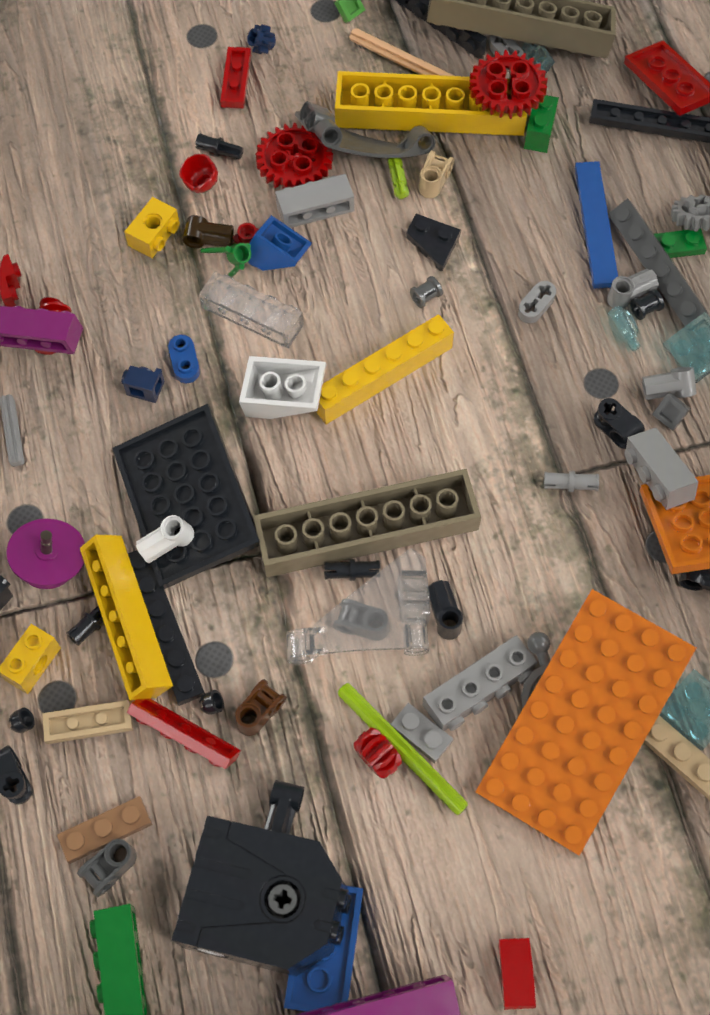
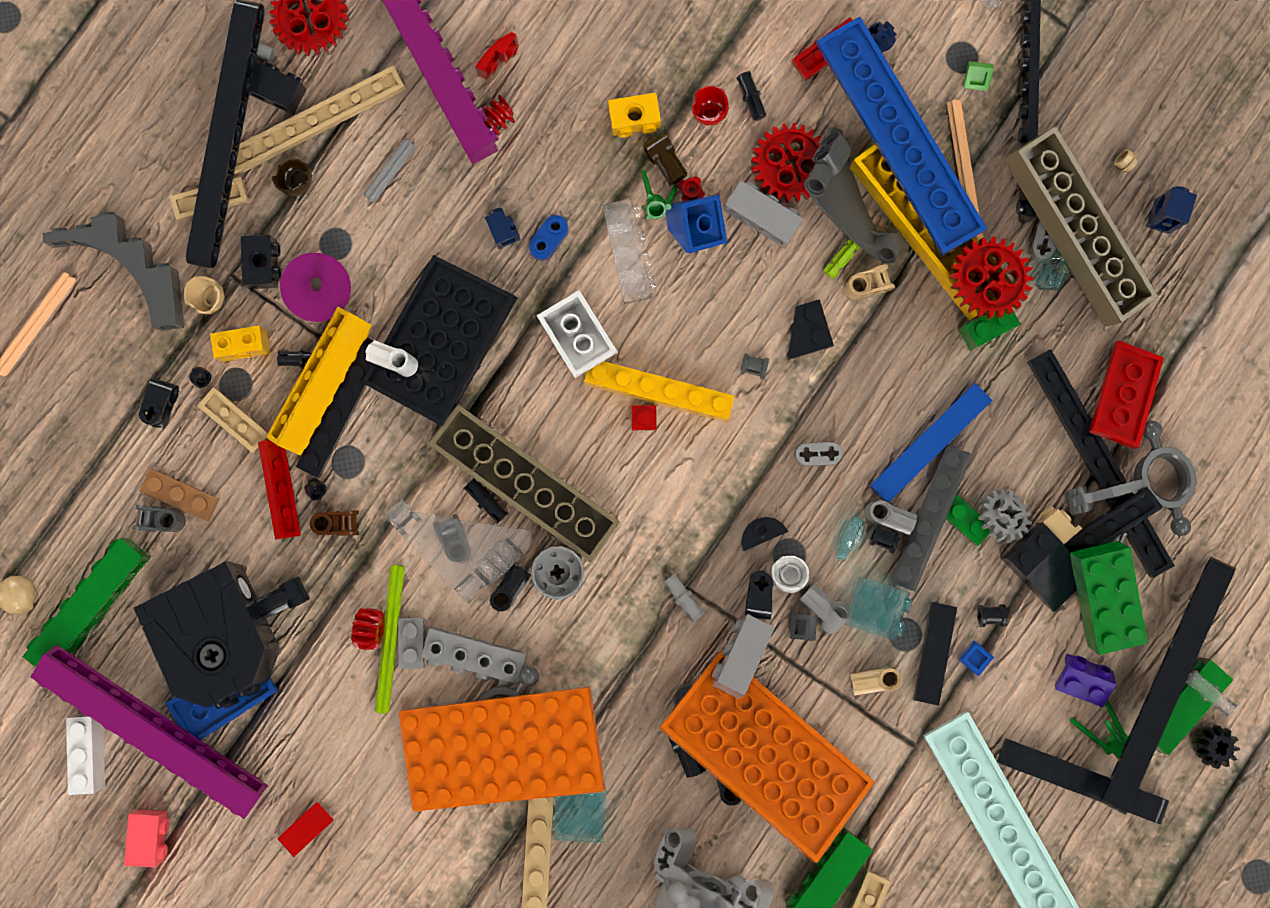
camera: 50 degrees right, 20 degrees up
(348, 65) = (901, 135): none -> blue plate
(394, 400) = (644, 418): none -> red plate
(467, 540) = (570, 579): none -> light grey wheel
(564, 386) = (760, 531): none -> black plate
(619, 386) = (790, 574): none -> white hair

